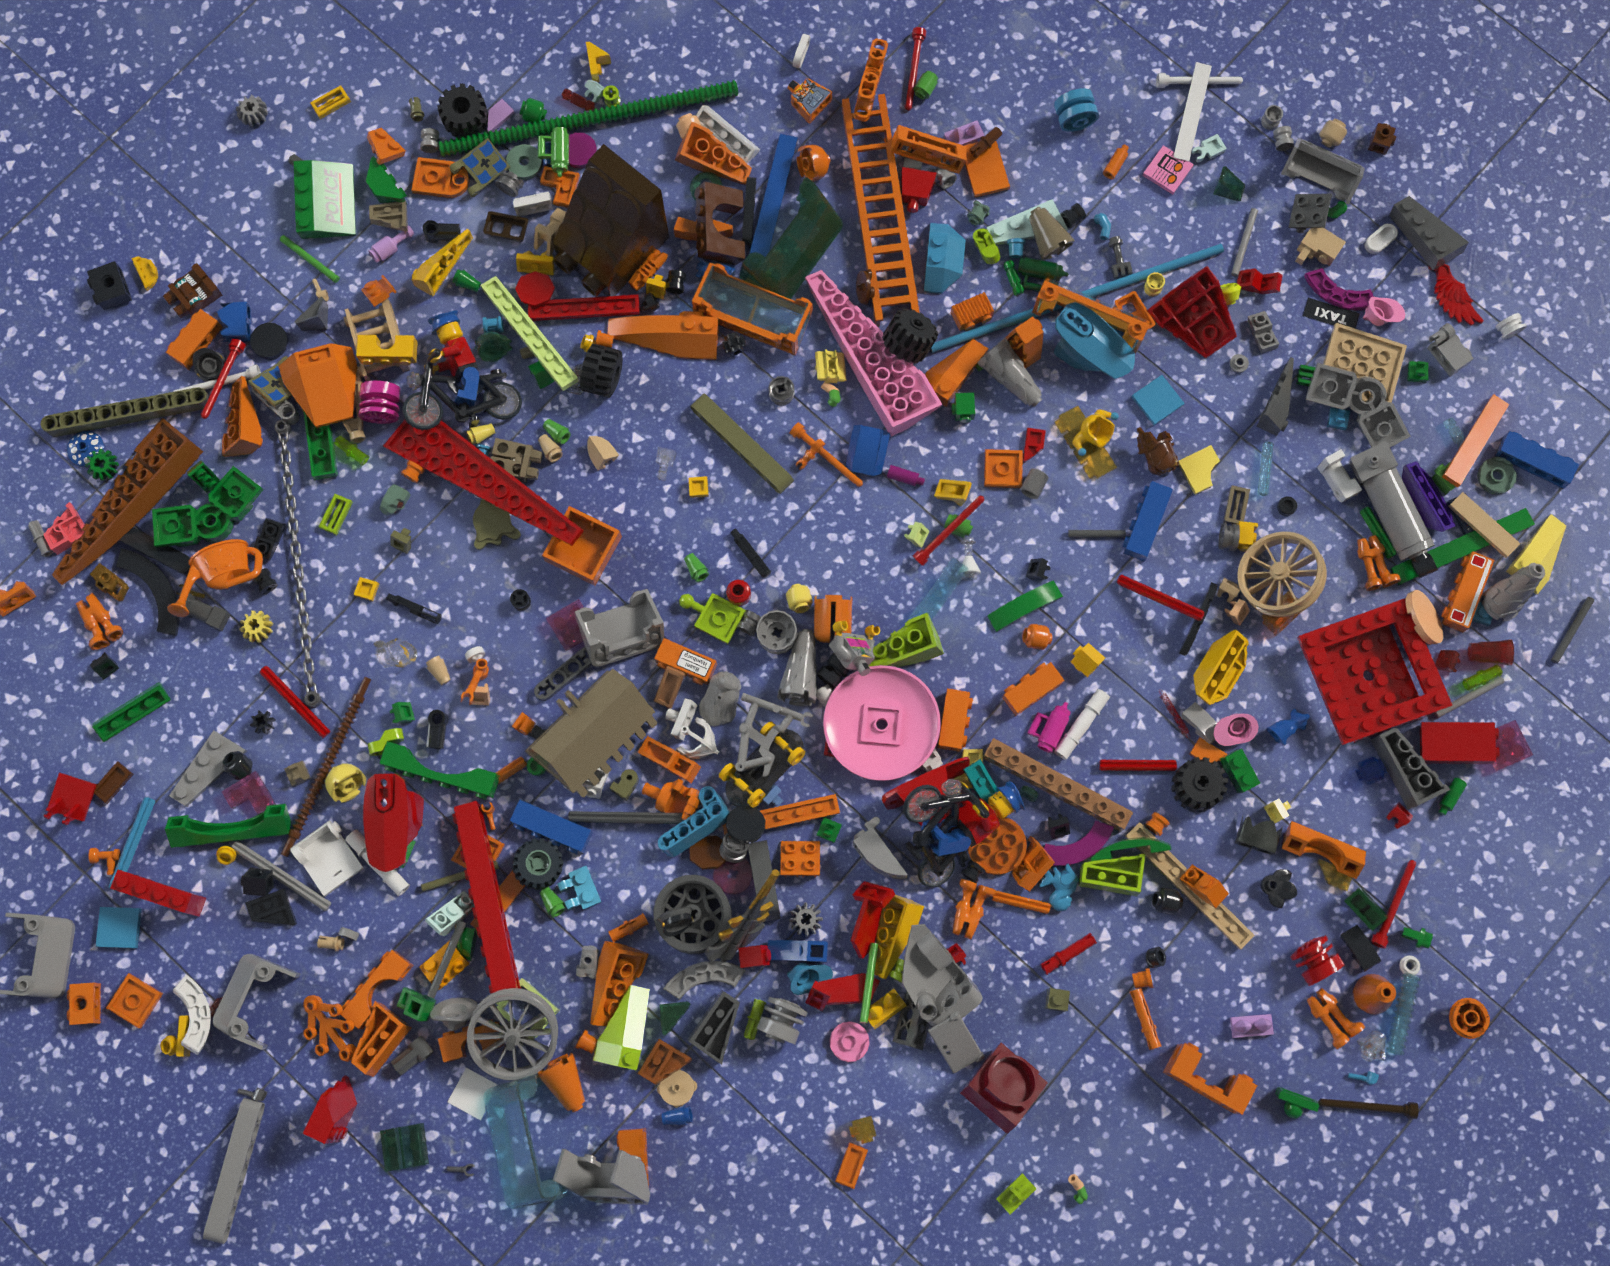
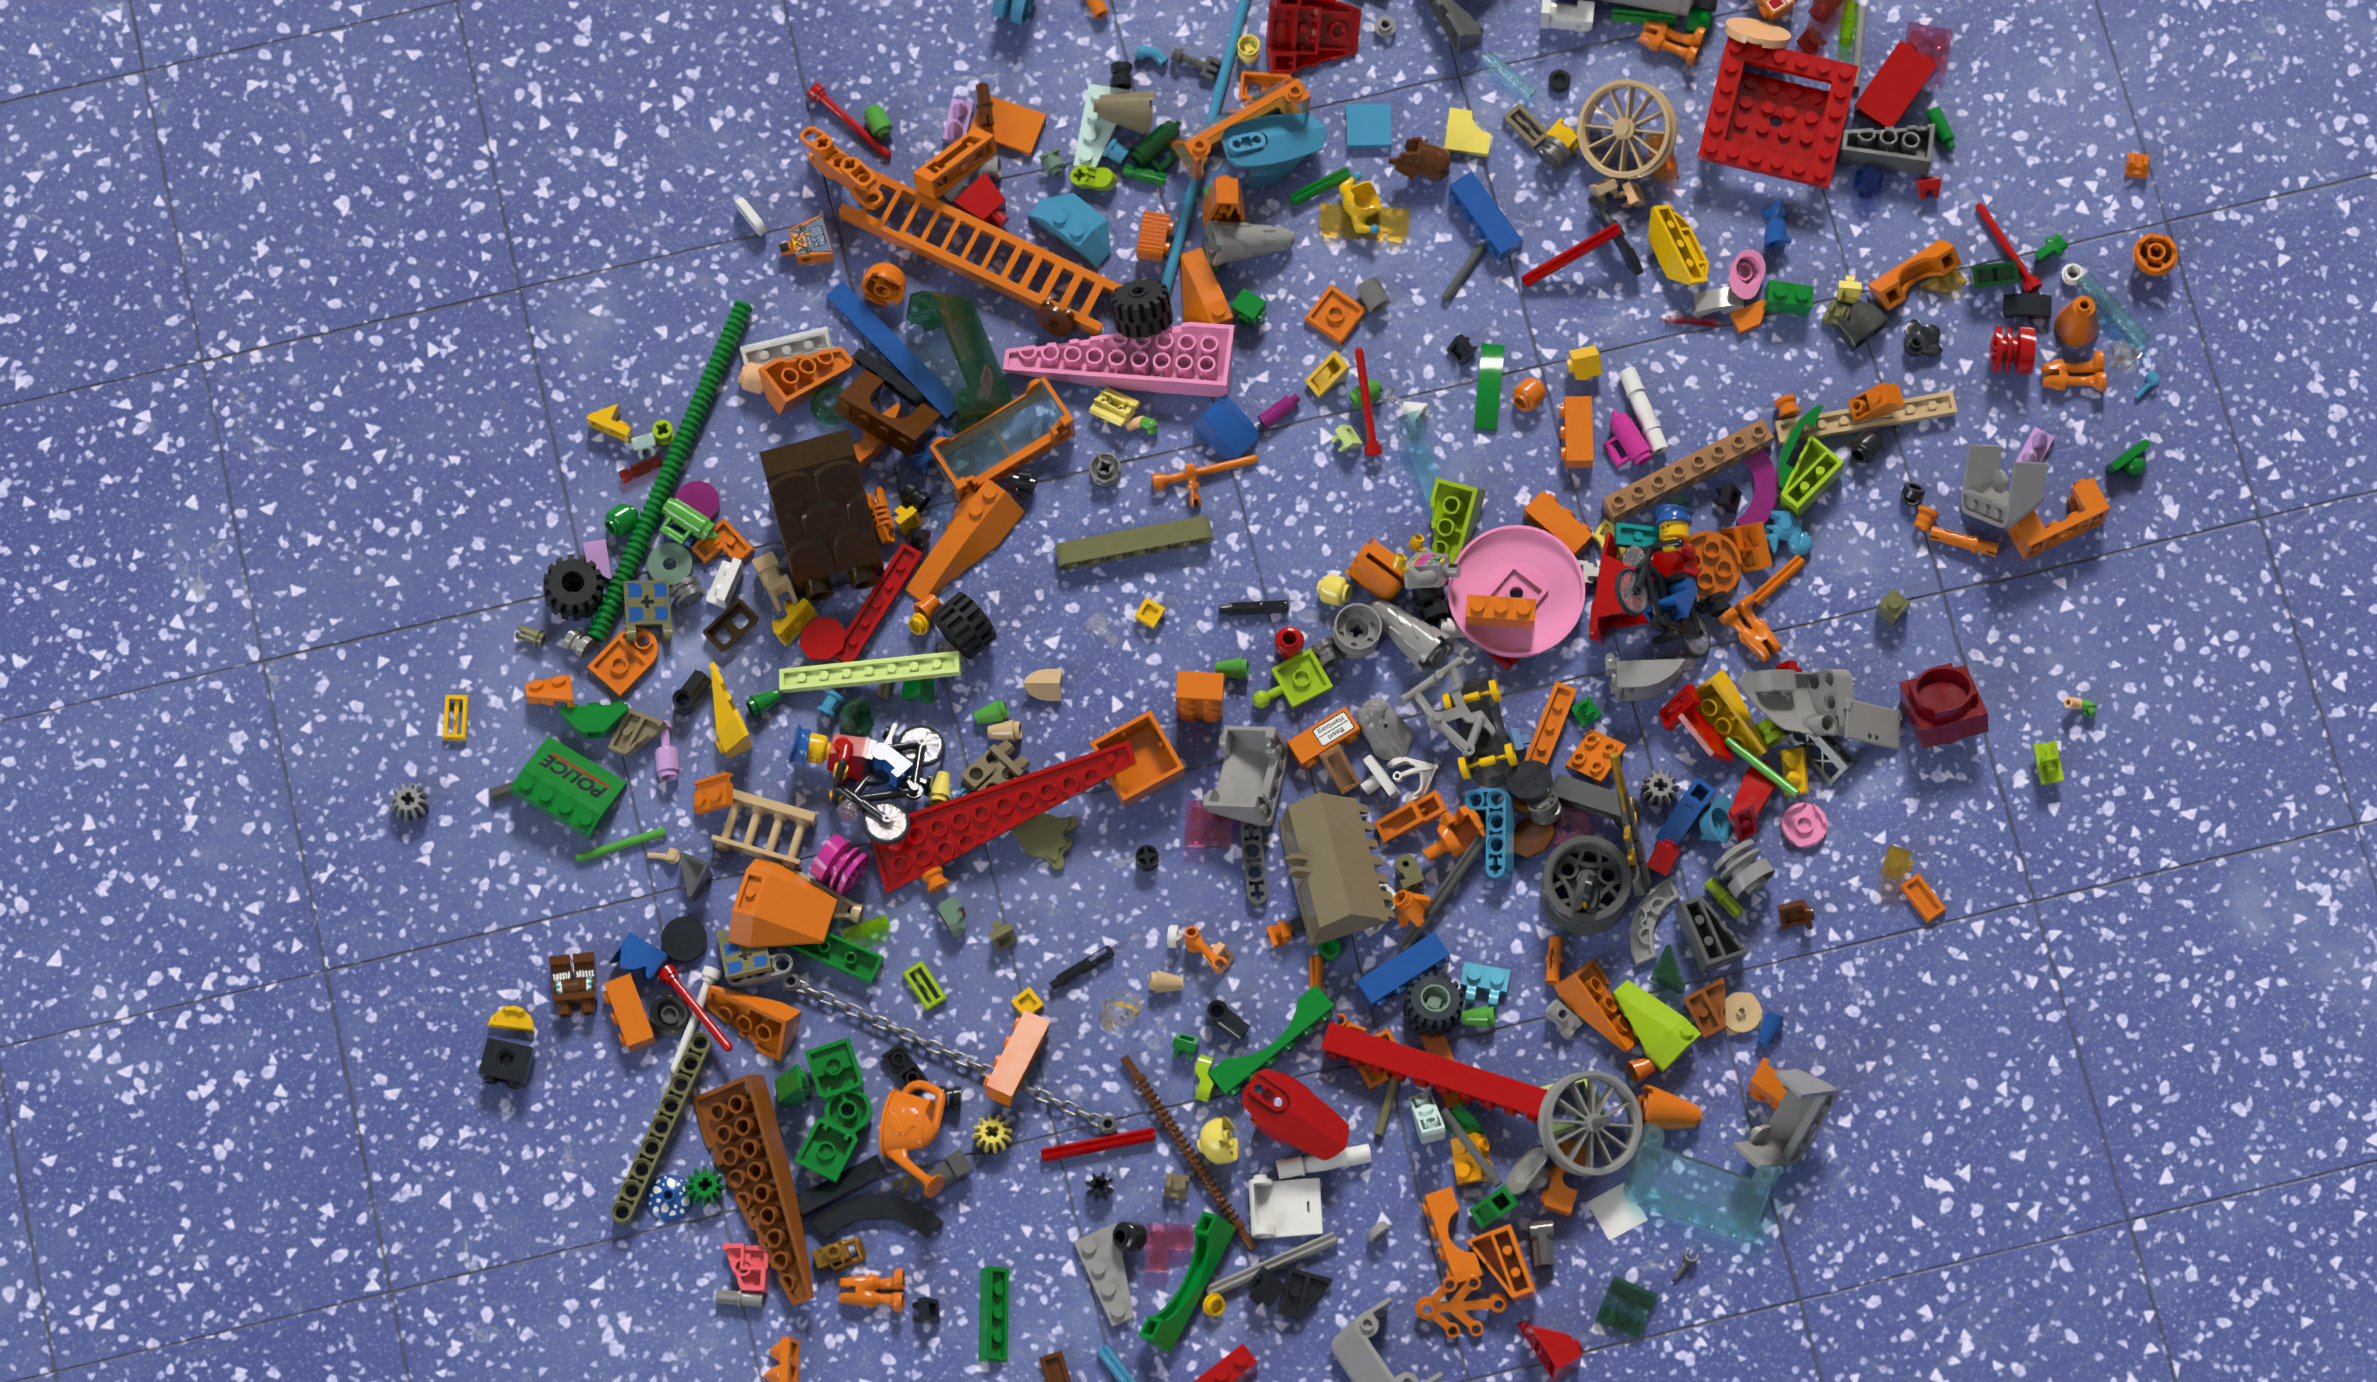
camera: 55 degrees left, 5 degrees down
(315, 606) = (1016, 1058): none -> brick
(336, 943) = (1374, 1255): tan pin -> none
(402, 352) = (781, 837): yellow arch -> none
(598, 802) = (1411, 907): none -> orange rock
(653, 557) = (1200, 696): none -> orange brick
(775, 1079) = (1795, 914): none -> reddish brown bracket
(855, 721) = (1500, 611): none -> orange brick
(1033, 443) = (1329, 269): red tile -> none
(1060, 958) = (1855, 576): red pin -> none
(1089, 396) = (1319, 186): none -> green axle
(1137, 765) = (1718, 387): red axle -> none
(1191, 1012) = (1985, 487): none -> light grey windscreen
(1192, 793) = (1774, 354): black wheel -> none
(1254, 811) = (1834, 312): none -> olive tile
(1410, 1109) = (2203, 365): dark brown piece -> none
(1530, 958) = (2137, 165): none -> orange tile

